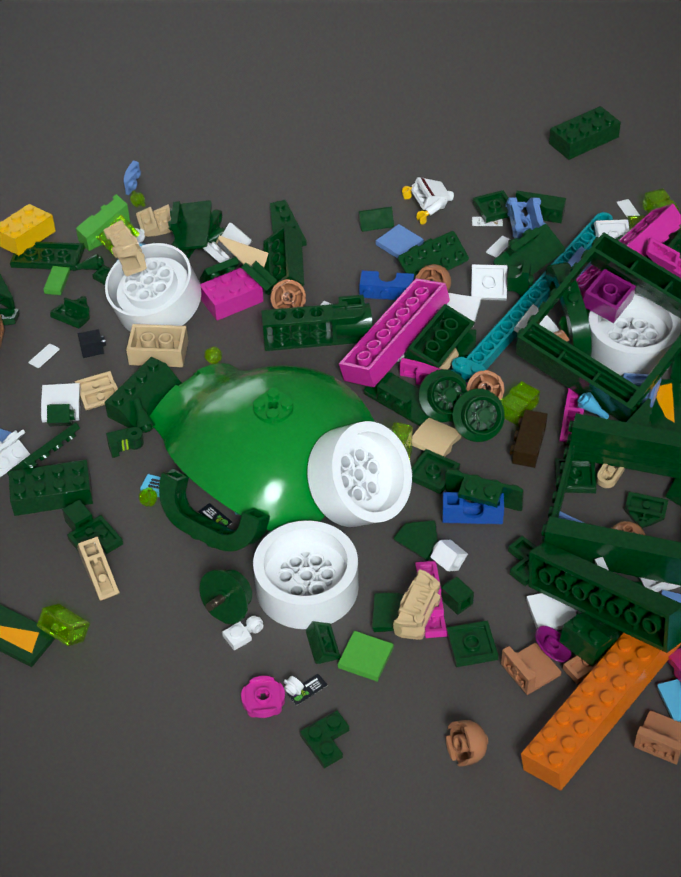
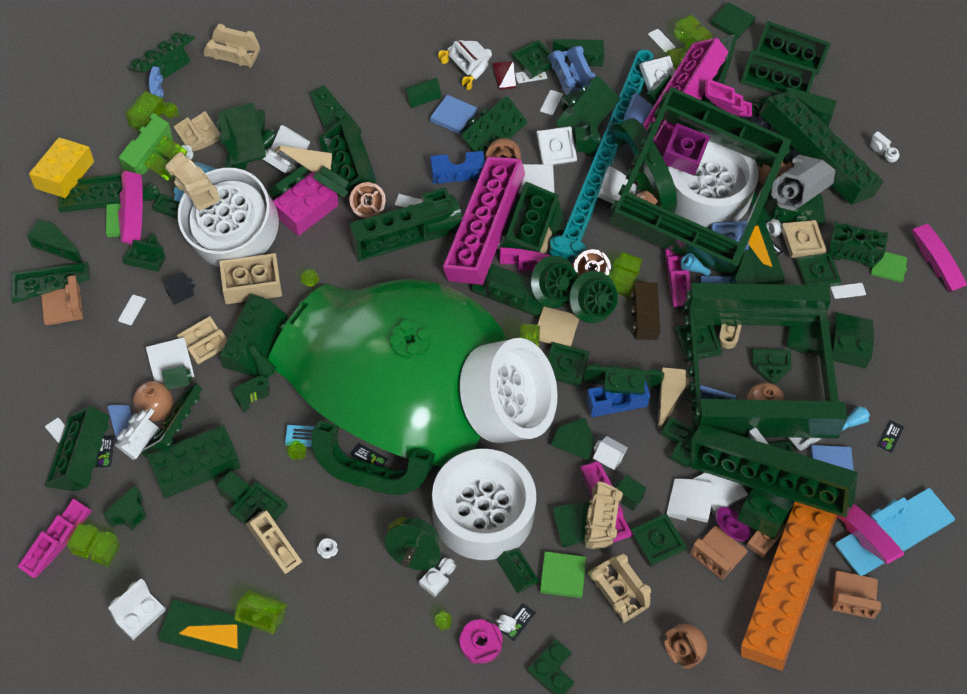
camera: 20 degrees left, 10 degrees up
(37, 430) = (154, 396): none -> nougat cylinder
(72, 270) = (131, 207): none -> dark pink slope
(120, 188) = (141, 111): none -> clear neon green brick
(142, 585) = (327, 543): none -> white plate
(150, 158) = (168, 56): none -> dark green bracket
(211, 155) = (235, 46): none -> tan piece
(233, 670) = (443, 620): none -> clear neon green plate
(427, 673) = (628, 581): none -> tan piece
(460, 216) = (504, 74): none -> dark red slope
(518, 614) = (691, 499): none -> white slope
(530, 514) = (671, 392): none -> tan slope

